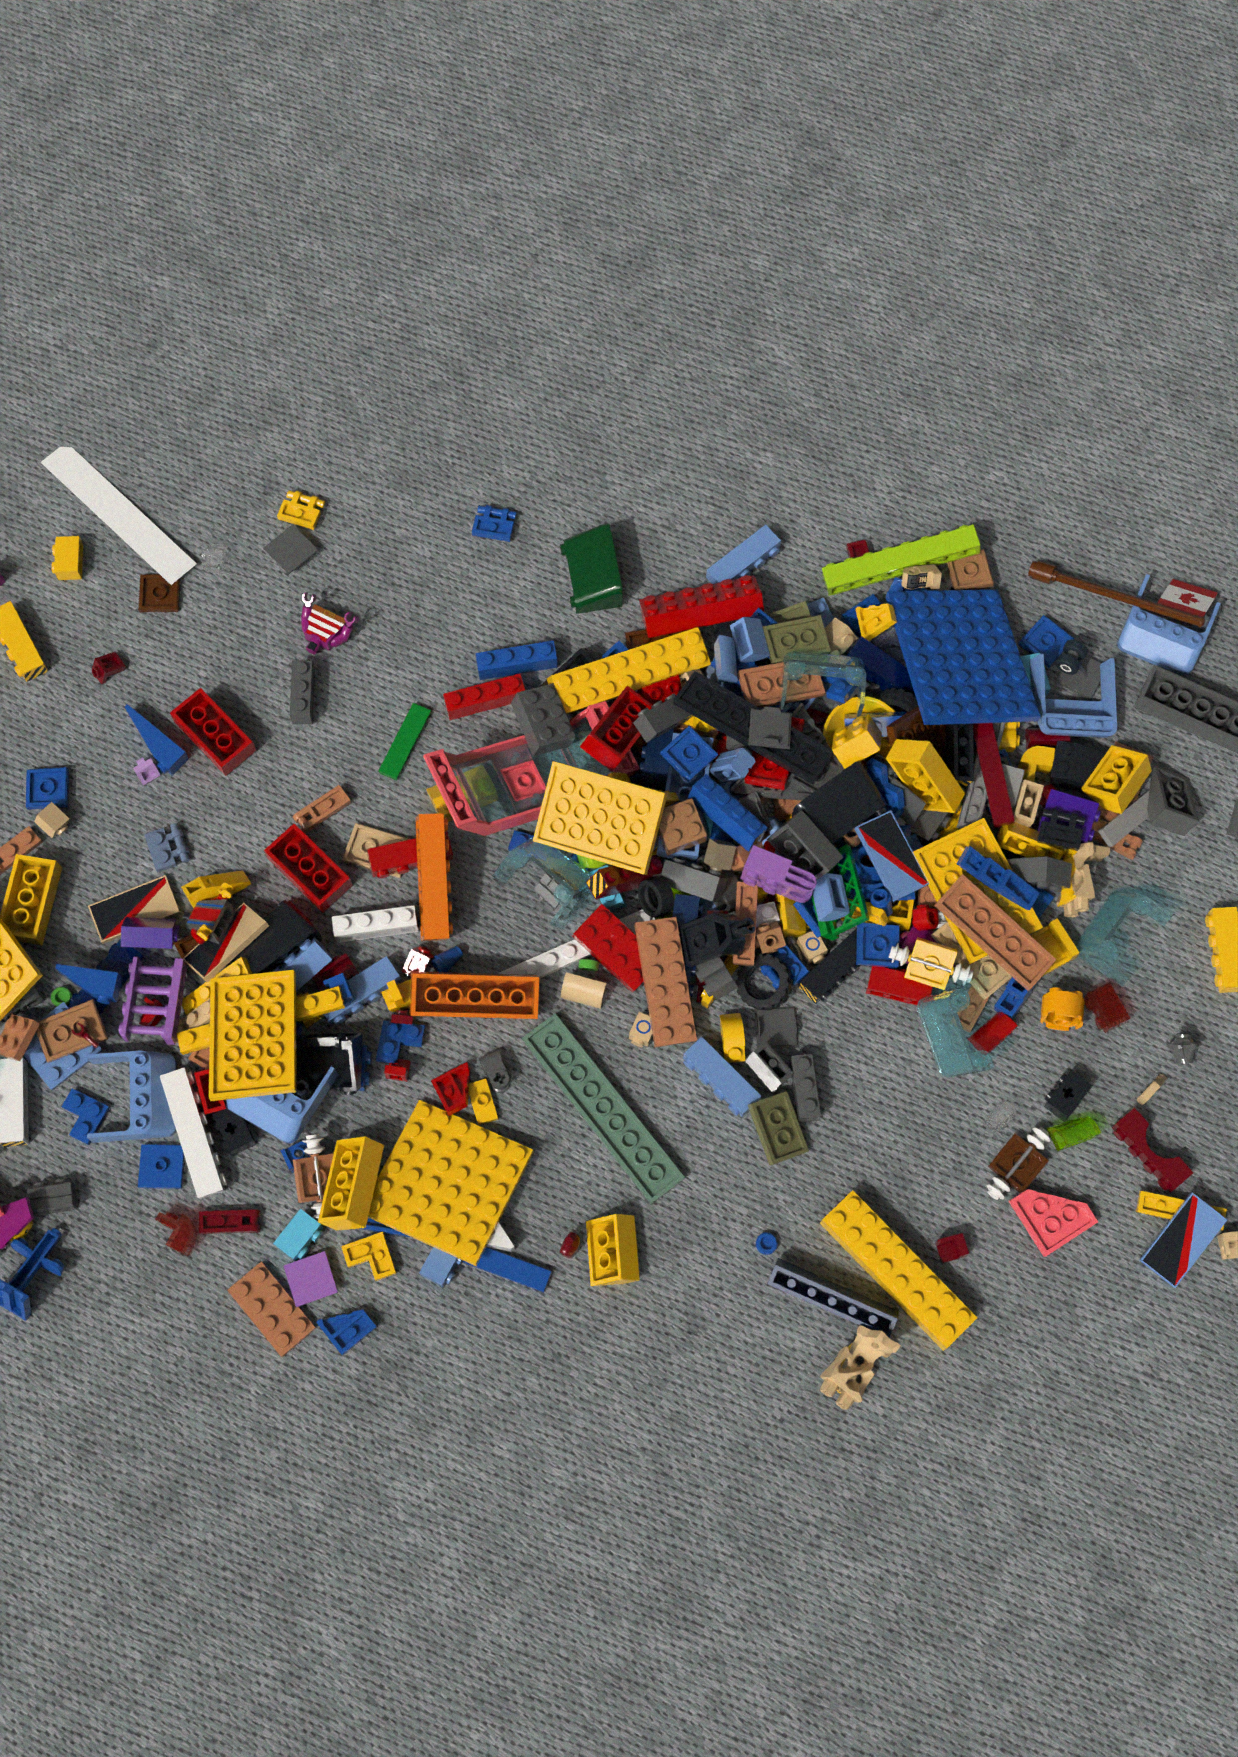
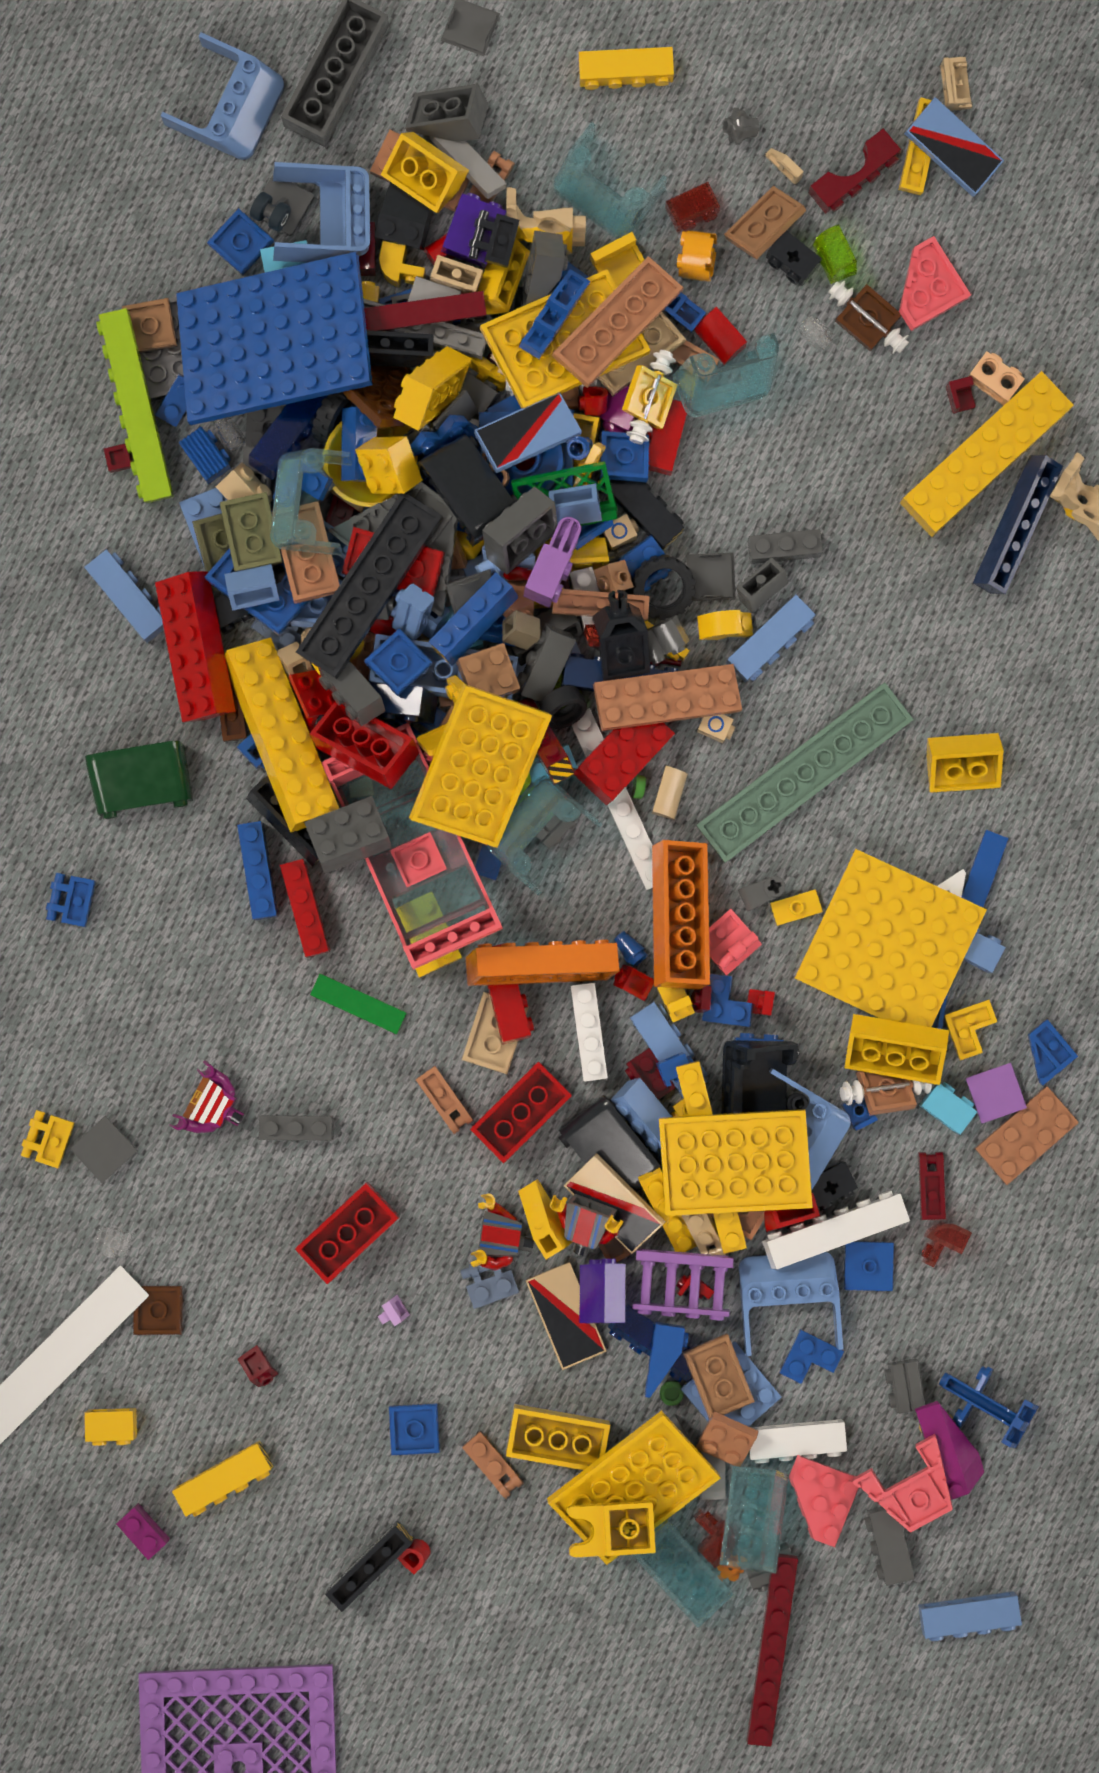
camera: 90 degrees left, 15 degrees up
(52, 820) = (458, 1418): tan brick -> none
(84, 1034) = (727, 1358): dark red hand -> none
(164, 750) = (367, 1293): blue slope -> none
(200, 850) = (499, 1237): none -> torso
(451, 1042) = (731, 942): none -> coral plate
(453, 1088) = (783, 939): red wing -> none
(570, 1245) = (959, 808): dark red piece -> none
(725, 659) = (279, 616): medium blue brick -> none
(766, 1243) = (954, 595): blue tile -> none
(770, 728) = (373, 565): dark grey piece -> none
(778, 1128) = (831, 577): olive plate -> none
(875, 620) = (222, 439): yellow wing -> none
(921, 577) = (161, 382): tan leg -> none
(965, 1276) = (992, 383): none -> light nougat brick
(1098, 1069) = (765, 222): none -> medium nougat tile
(1178, 601) = (198, 75): flag -> none

